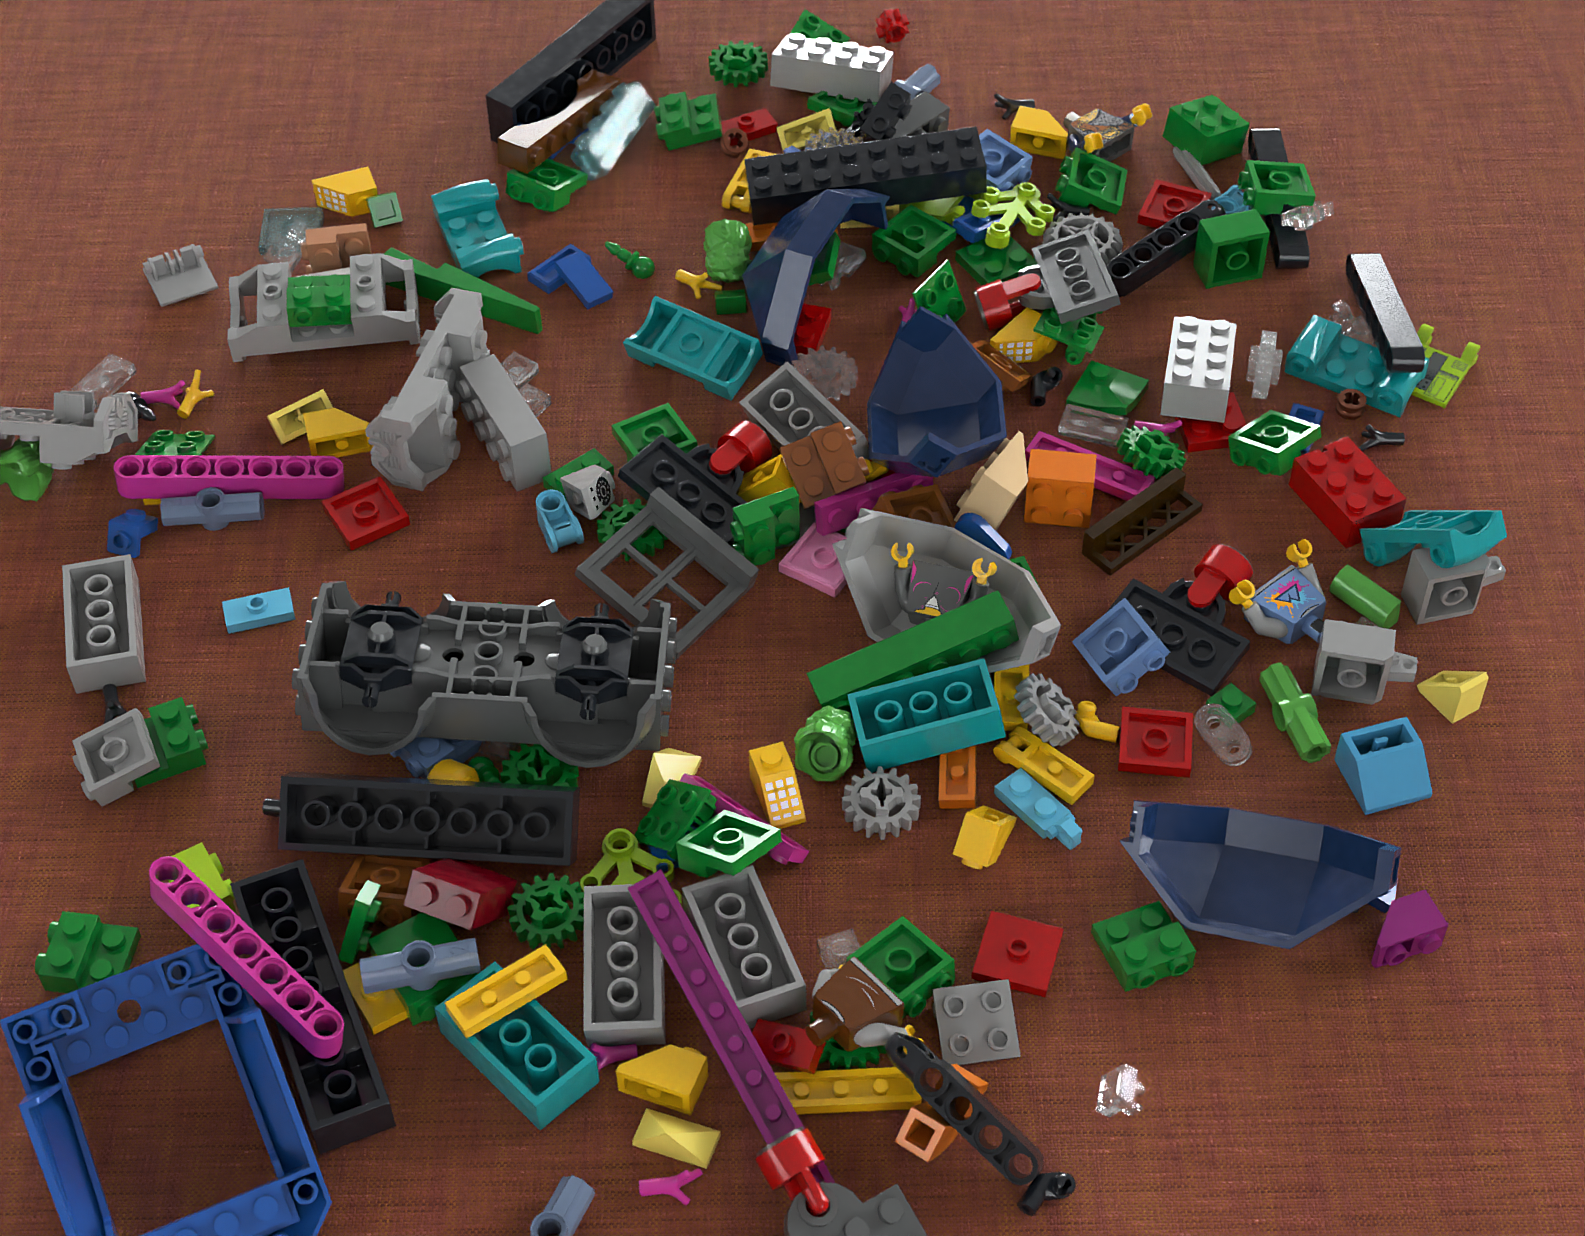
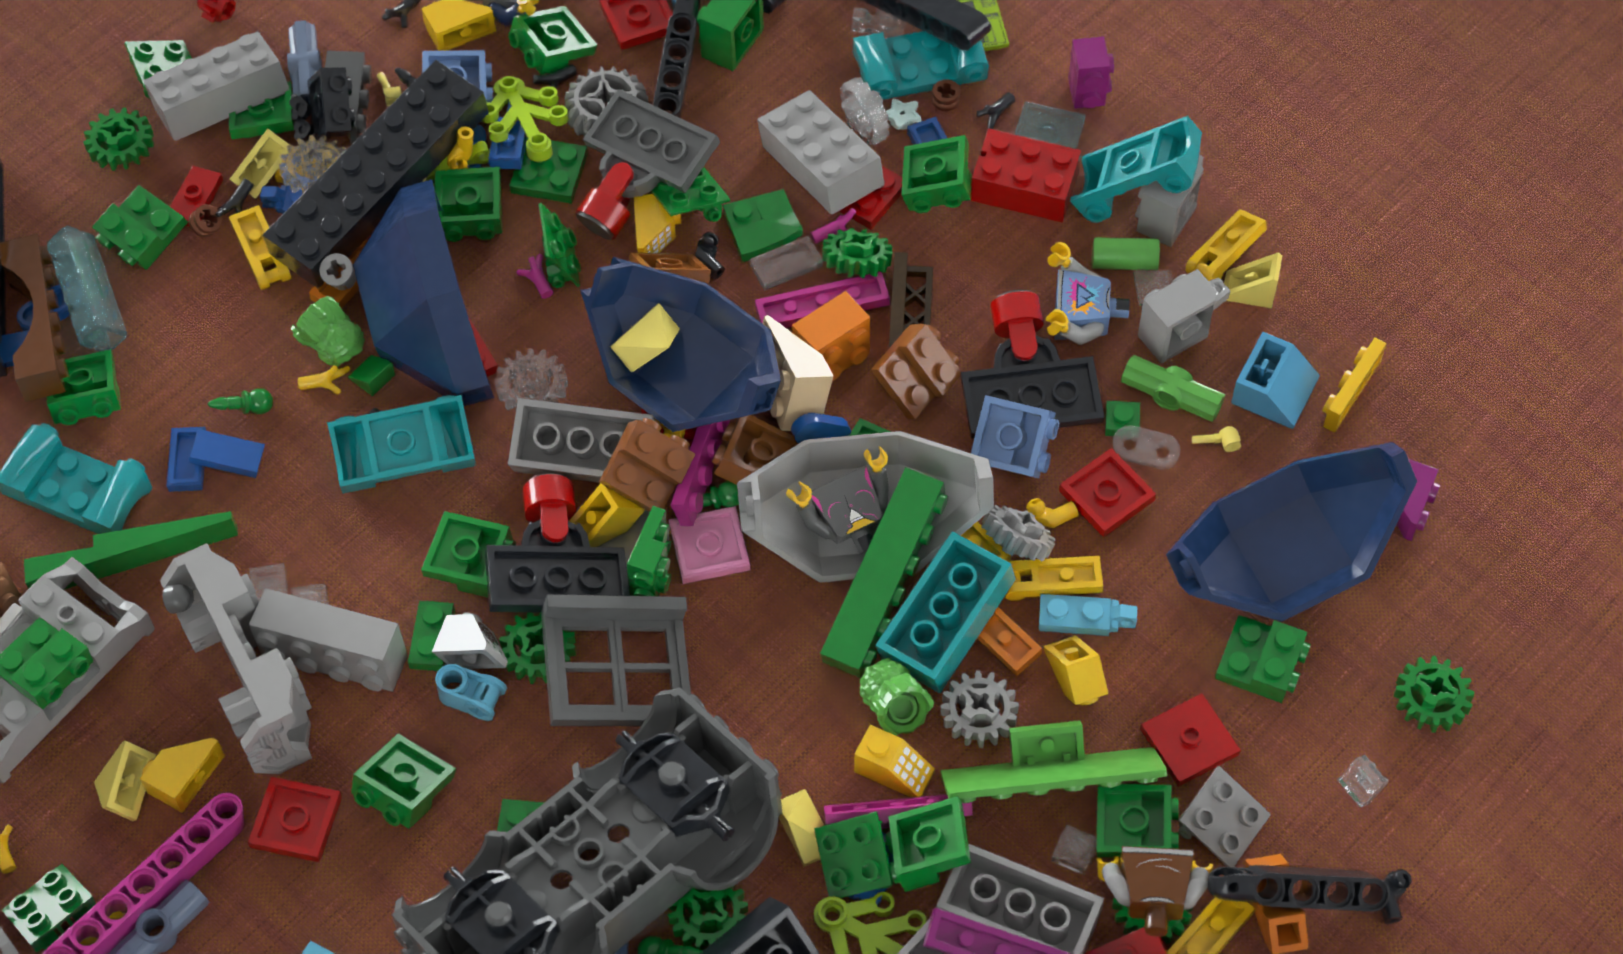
camera: 45 degrees left, 10 degrees up
(431, 316) = (177, 598): none -> dark grey hinge
(451, 539) = (401, 781): none -> green plate
(767, 143) = (237, 199): none -> black bar
(768, 214) = (329, 271): none -> light grey bush
(891, 872) = (1051, 759): none -> bright green bracket
(922, 390) = (646, 338): none -> light yellow slope
(943, 202) = (462, 149): none -> yellow arm
(1100, 551) = (917, 369): none -> dark orange plate
(1252, 1082) = (1451, 690): none -> green gear
(1299, 392) = (909, 113): none -> light aqua plate
(1300, 778) = (1228, 436): none -> light yellow hand
(1413, 479) = (1050, 124): none -> clear light blue tile
(1454, 819) = (1352, 384): none -> yellow plate
(1459, 650) = (1227, 245): none -> yellow plate
(1480, 455) = (1090, 72): none -> magenta brick

